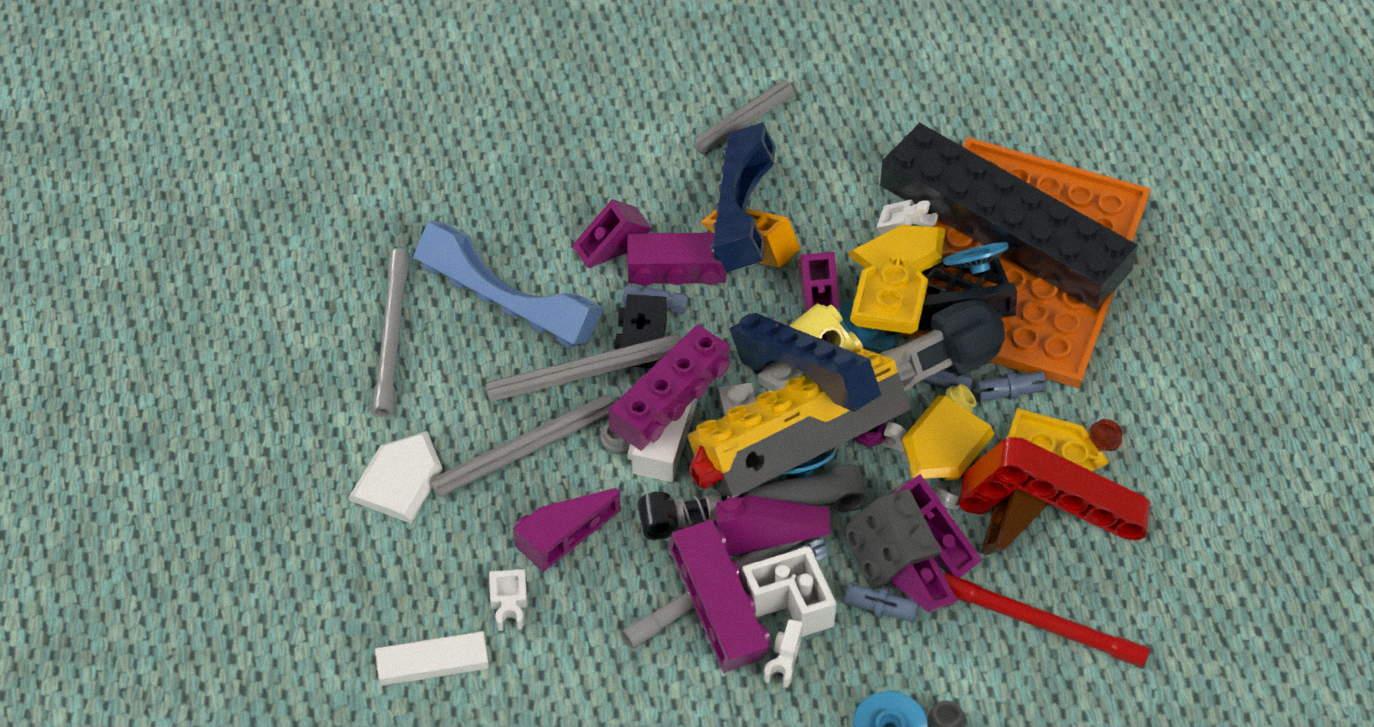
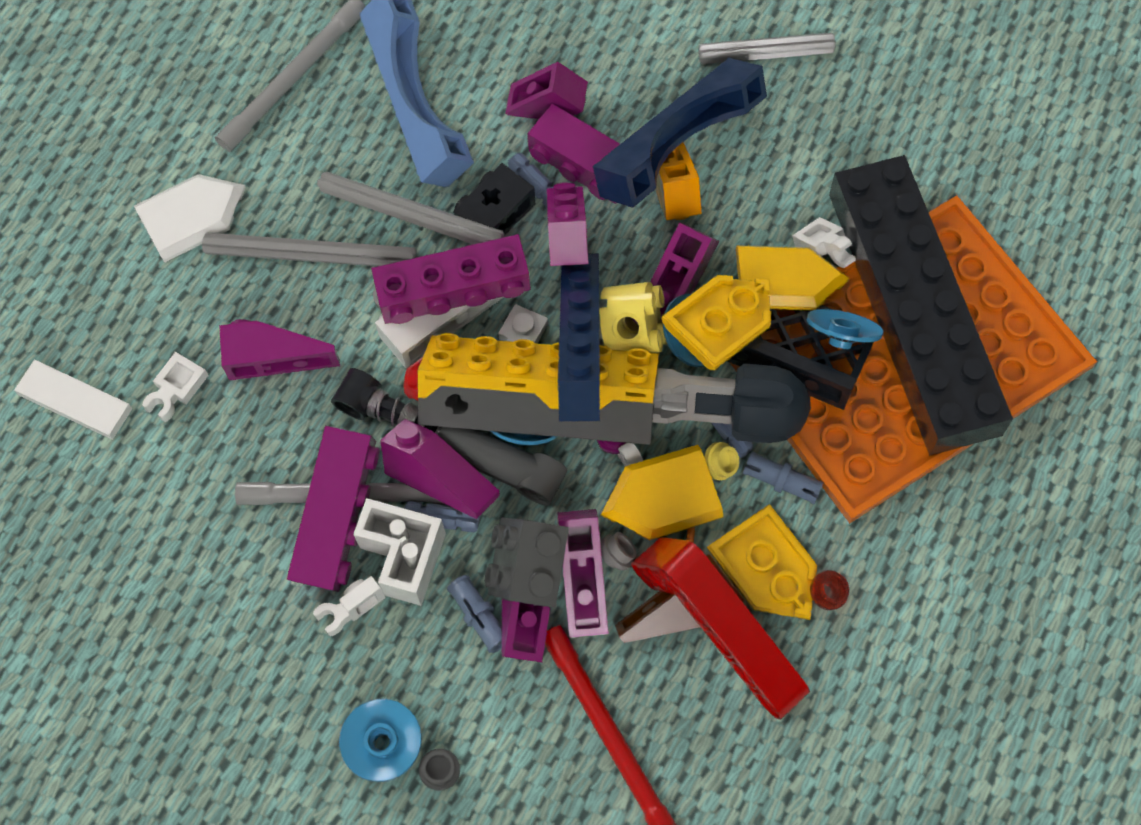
camera: 40 degrees right, 15 degrees up
(720, 302) = (567, 225): none -> magenta brick

